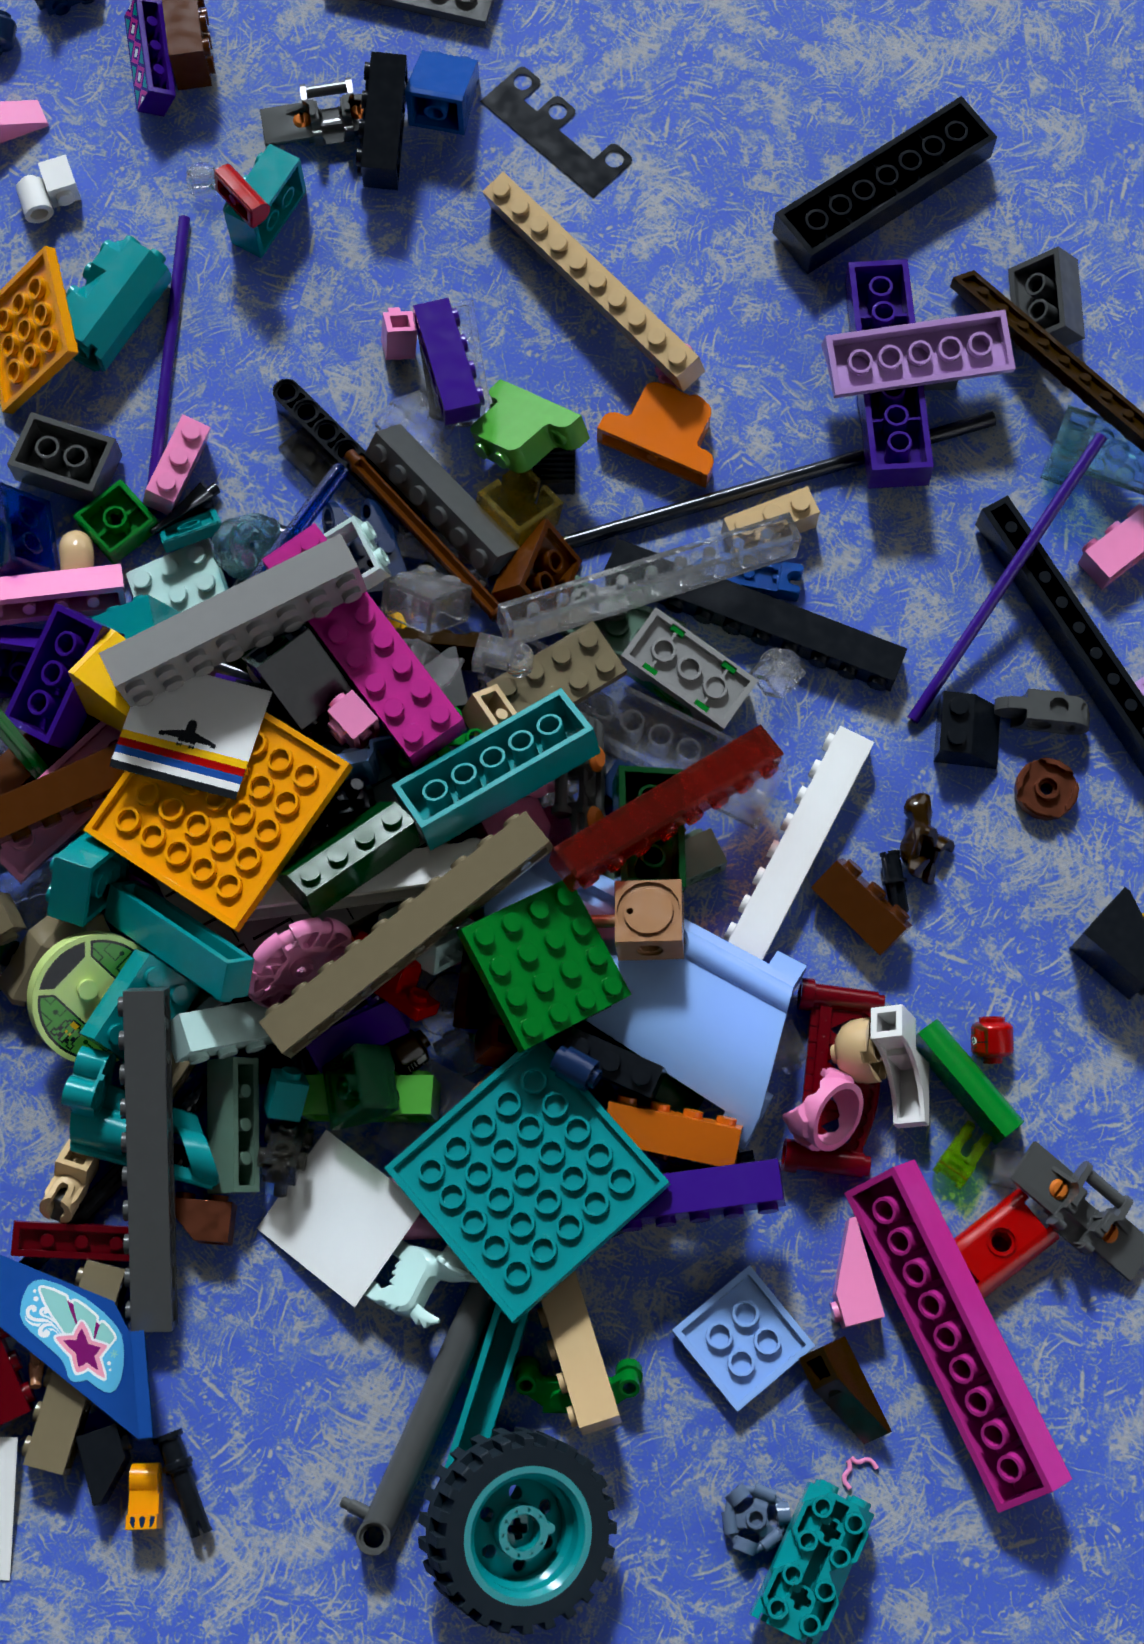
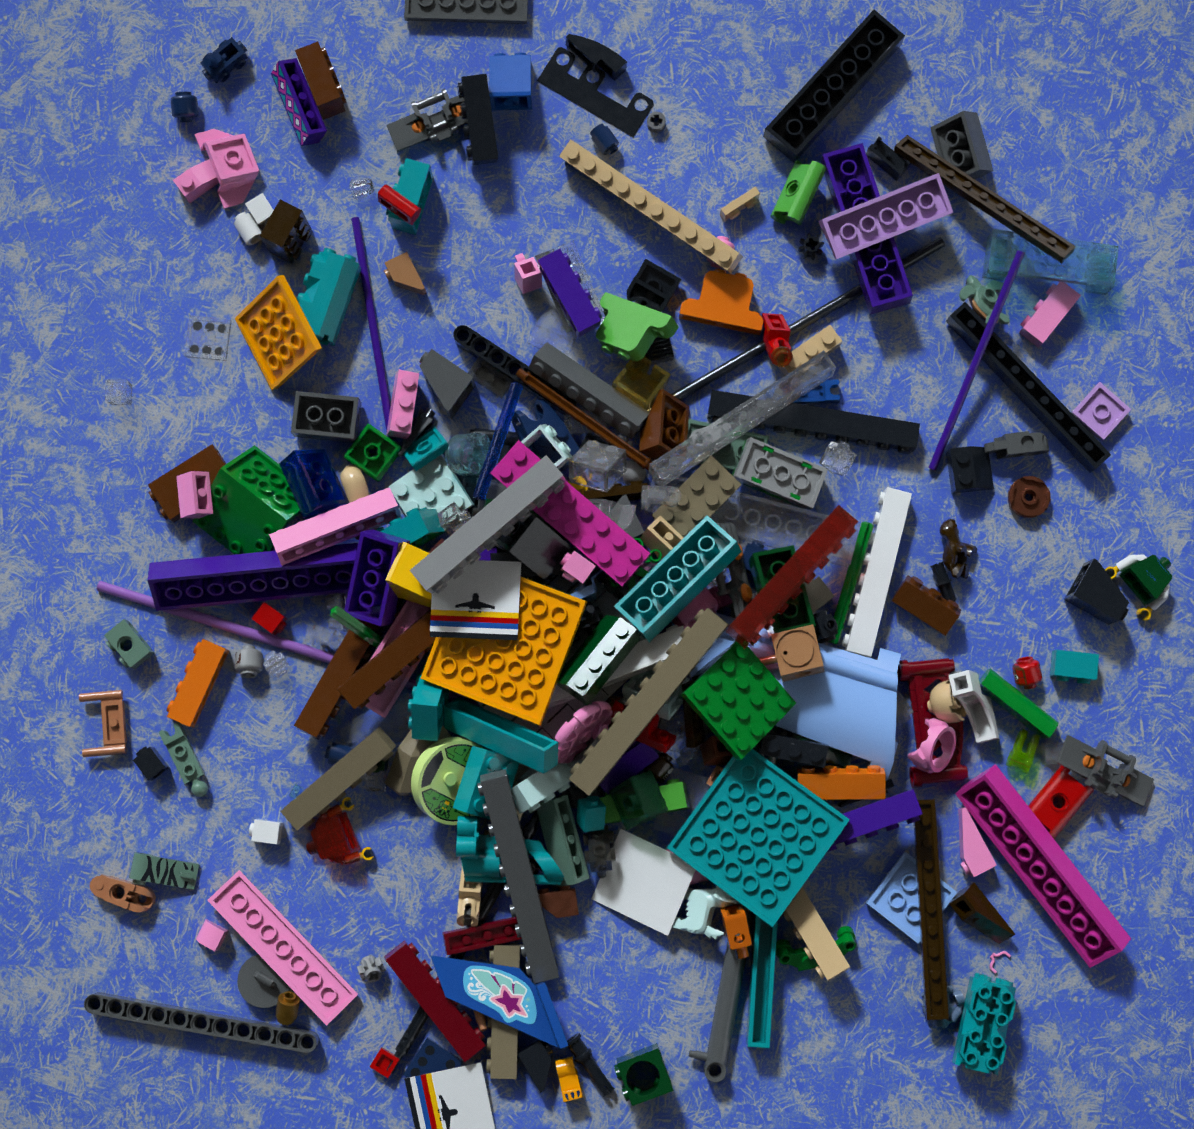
camera: 10 degrees left, 10 degrees up
(37, 117) = (232, 164): none -> bright pink piece
(80, 205) = (286, 232): none -> dark brown brick
(229, 300) = (404, 274): none -> medium nougat slope
(249, 447) = (447, 381): none -> dark grey slope
(284, 1536) = (661, 1084): none -> dark green brick
(458, 1303) = (736, 923): none -> orange torso
(479, 622) = (634, 472): none -> light grey piece
(551, 189) = (604, 139): none -> dark blue brick
(551, 1576) = (782, 1067): wheel -> none
(569, 83) = (596, 55): none -> black slope
(572, 385) = (653, 286): none -> black plate
(576, 1068) = (774, 760): dark blue brick -> none
(634, 190) = (650, 125): none -> flat silver bush
(700, 898) = (825, 627): none -> black brick
(717, 308) = (733, 209): none -> tan plate
(726, 489) = (777, 339): none -> red plate
(755, 850) = (851, 578): none -> green axle
(766, 1367) = (930, 913): none -> dark brown plate
(803, 308) = (798, 192): none -> bright green piece
(810, 378) = (814, 243): none -> black gear
(937, 293) = (887, 159): none -> black hinge
(1033, 500) = (982, 298): none -> sand green animal
(1065, 1045) = (1074, 665): none -> teal brick

